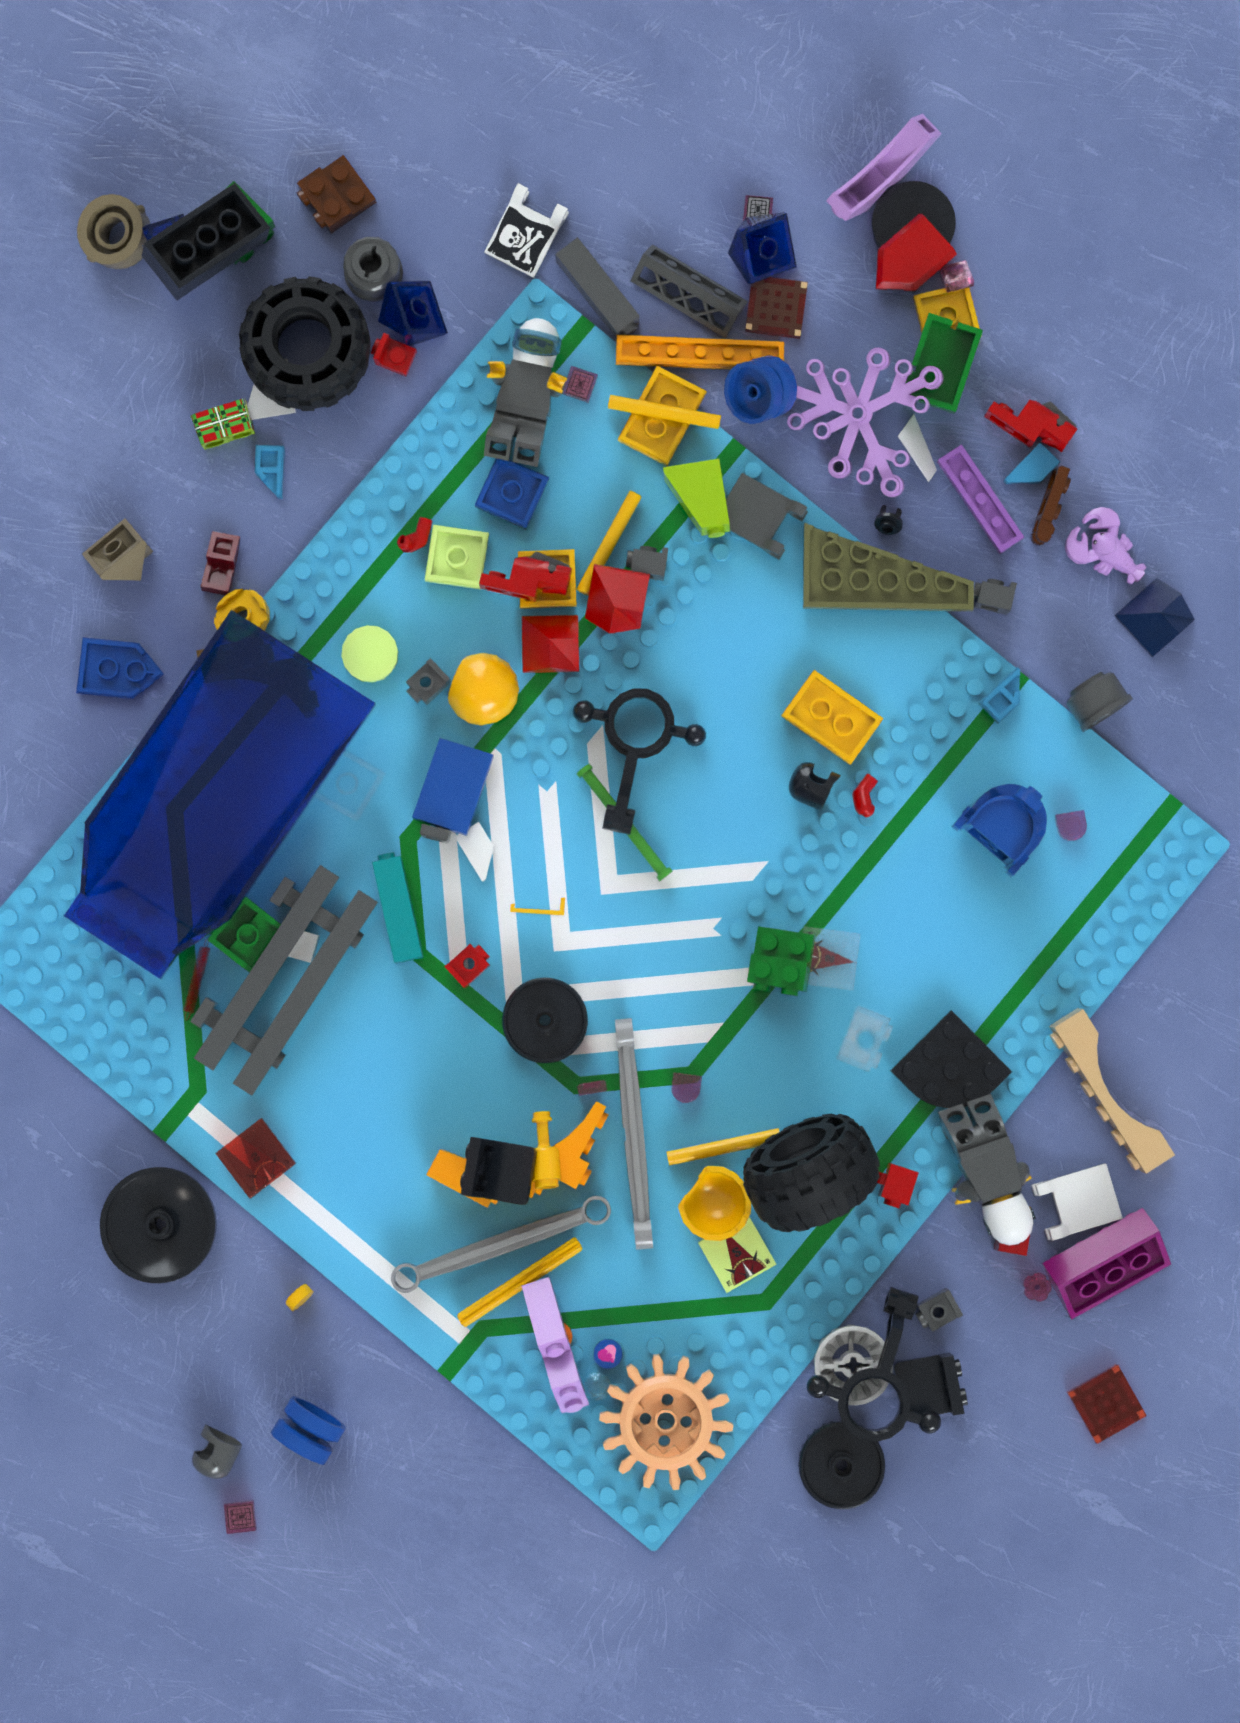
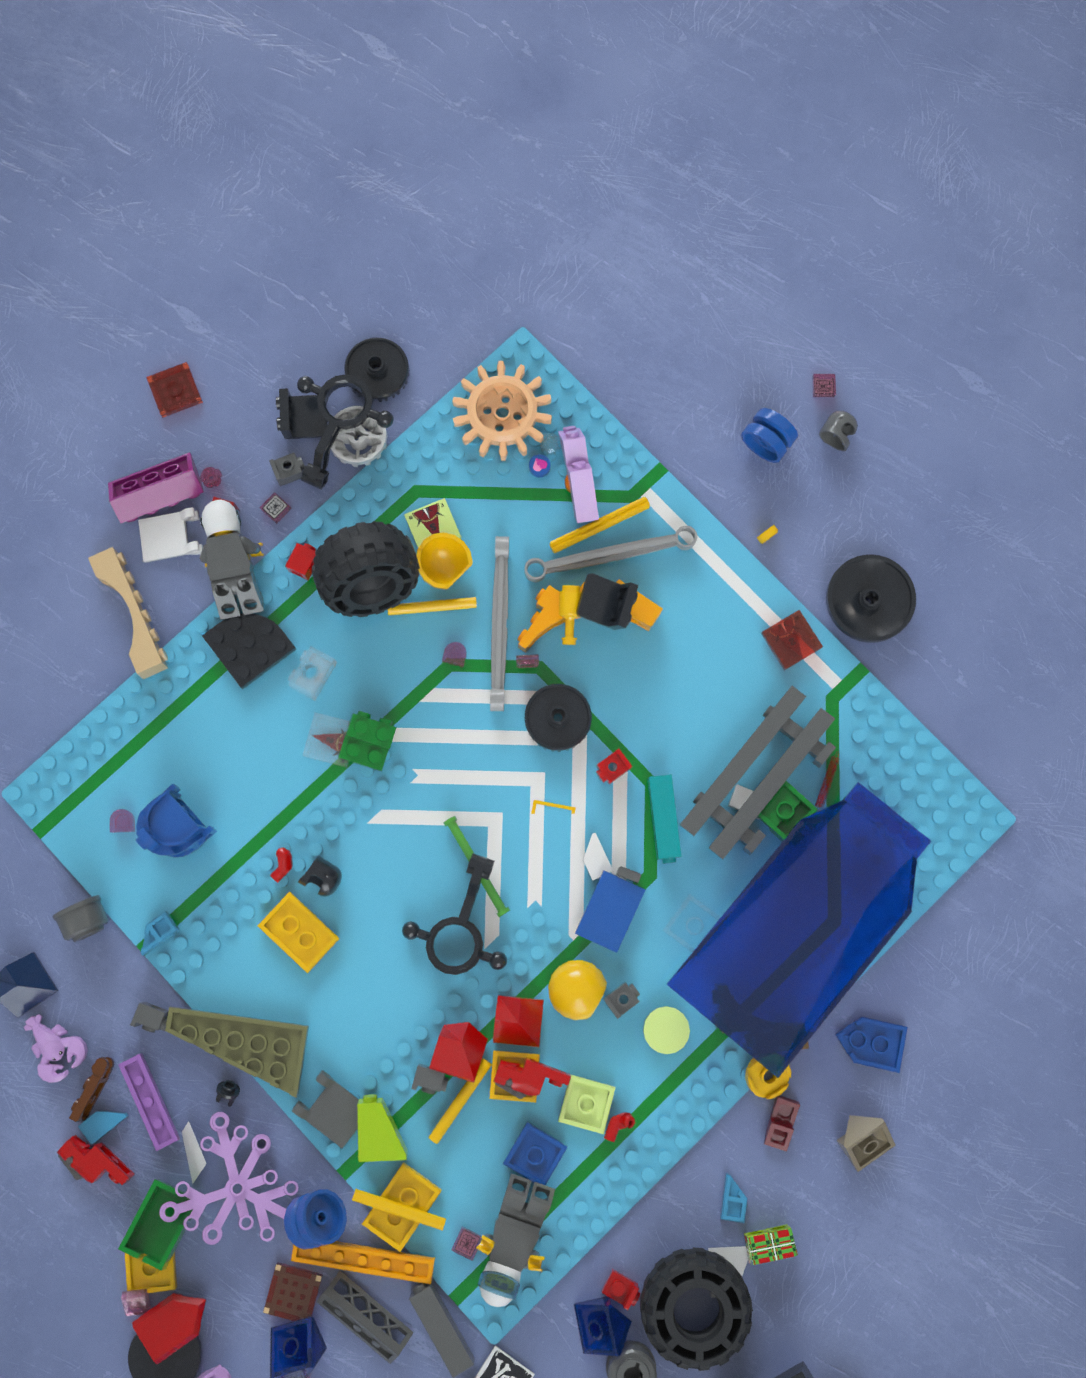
camera: 175 degrees left, 5 degrees down
(946, 1256) = (275, 508): none -> tile

